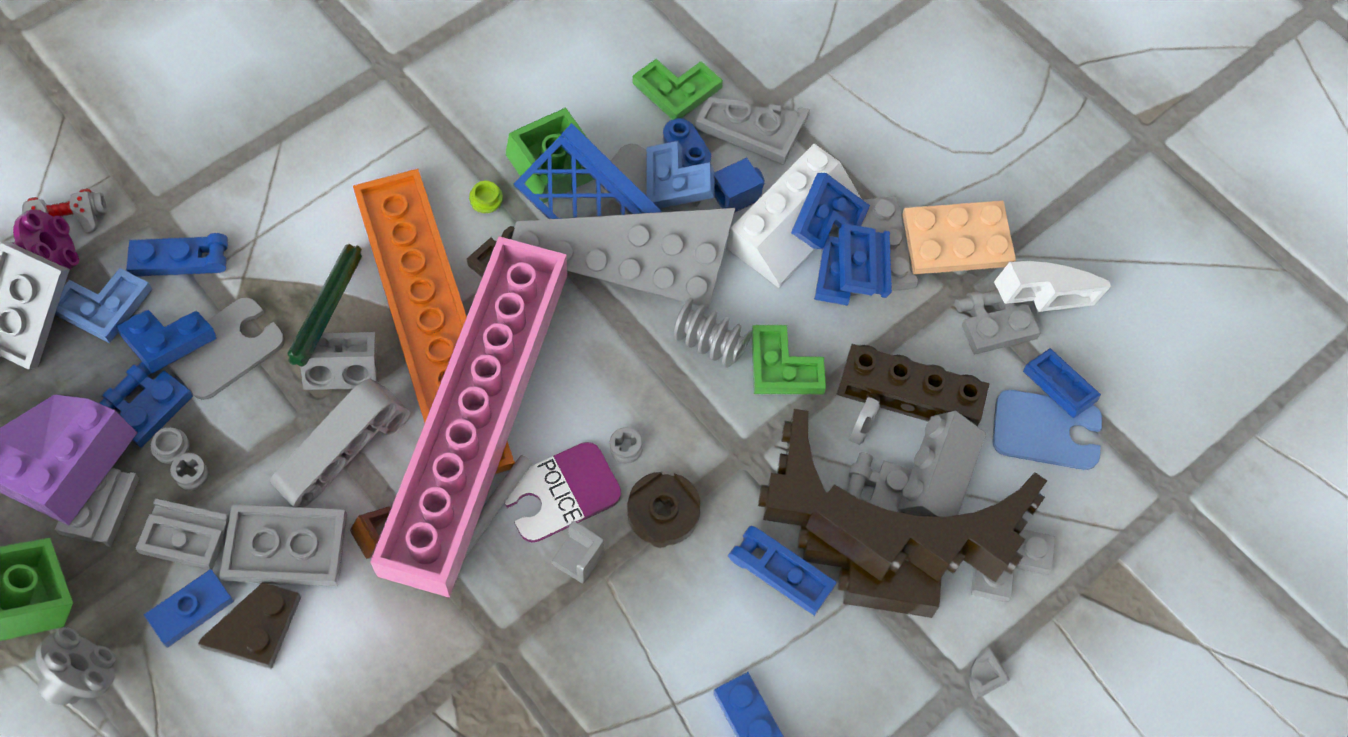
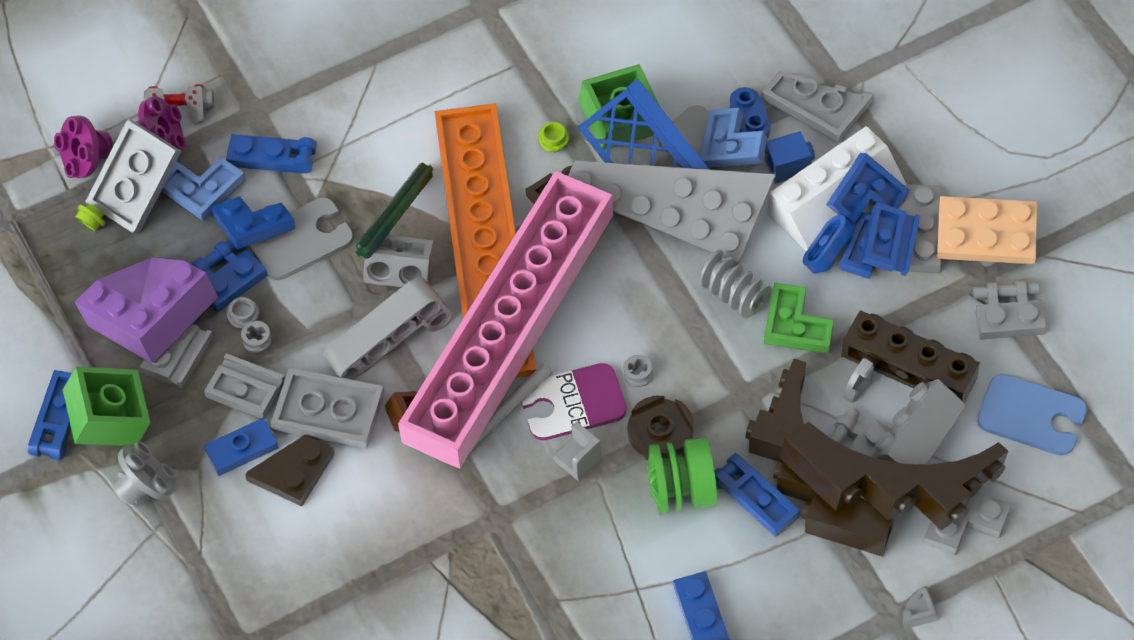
camera: 20 degrees right, 5 degrees down
(673, 94) = (752, 65): bright green plate -> none
(699, 566) = (682, 475): none -> bright green wheel
(799, 274) = (828, 244): none -> blue plate
(1049, 285) = (1063, 285): white slope -> none
(1061, 383) = (1054, 374): blue plate -> none

